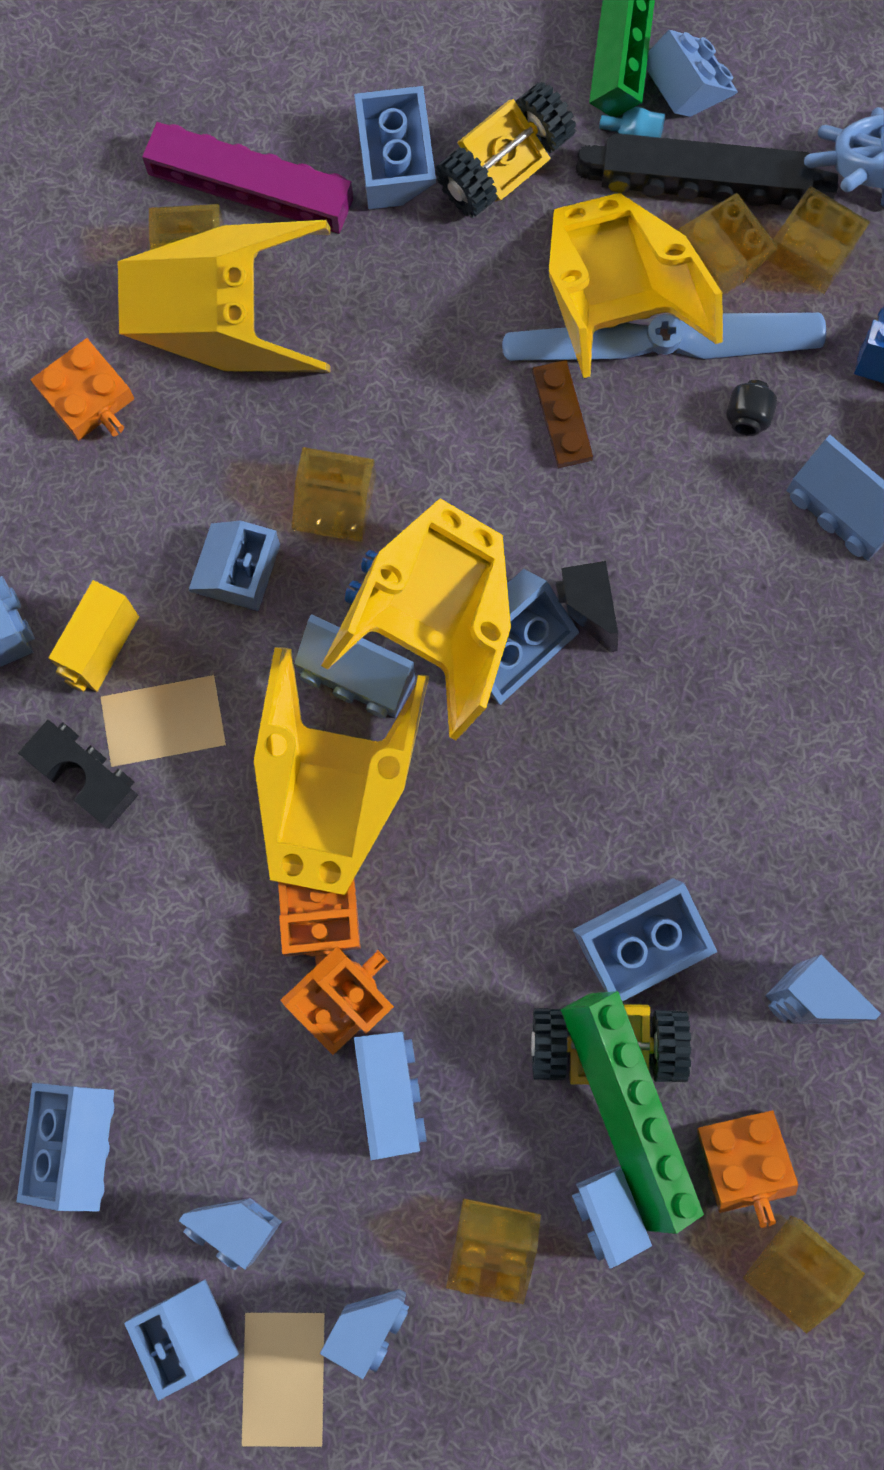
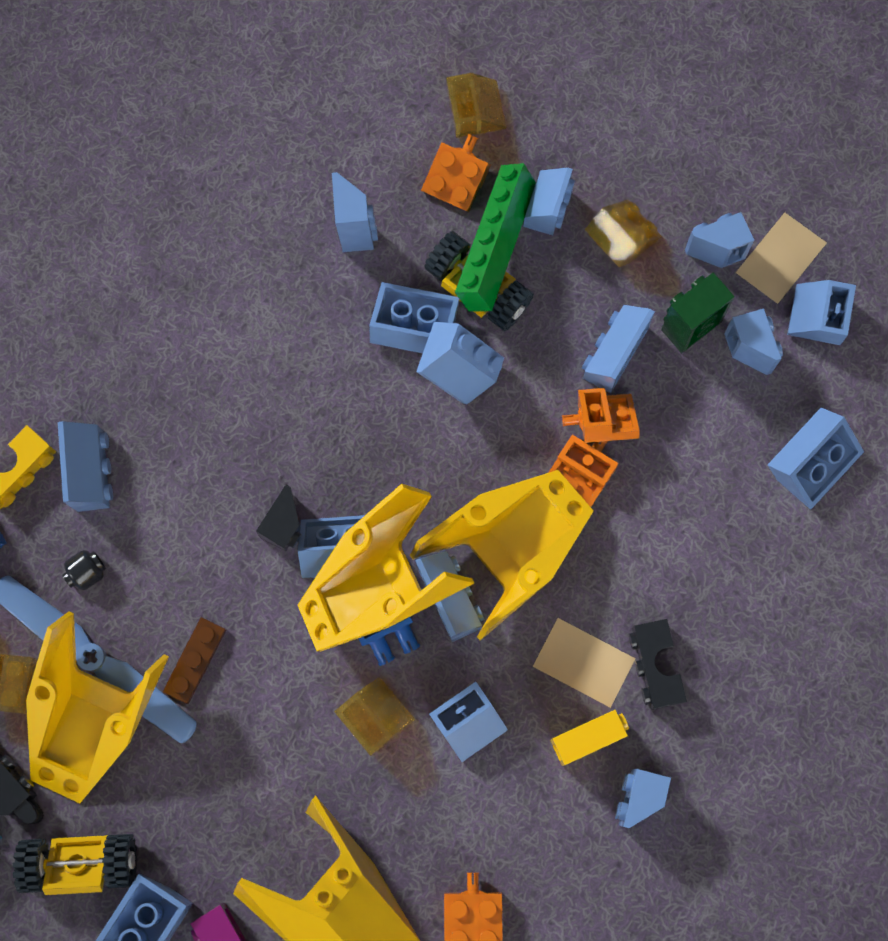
camera: 135 degrees left, 0 degrees up
(321, 1205) = (697, 311): none -> dark green brick
(549, 921) = (459, 362): none -> medium blue slope

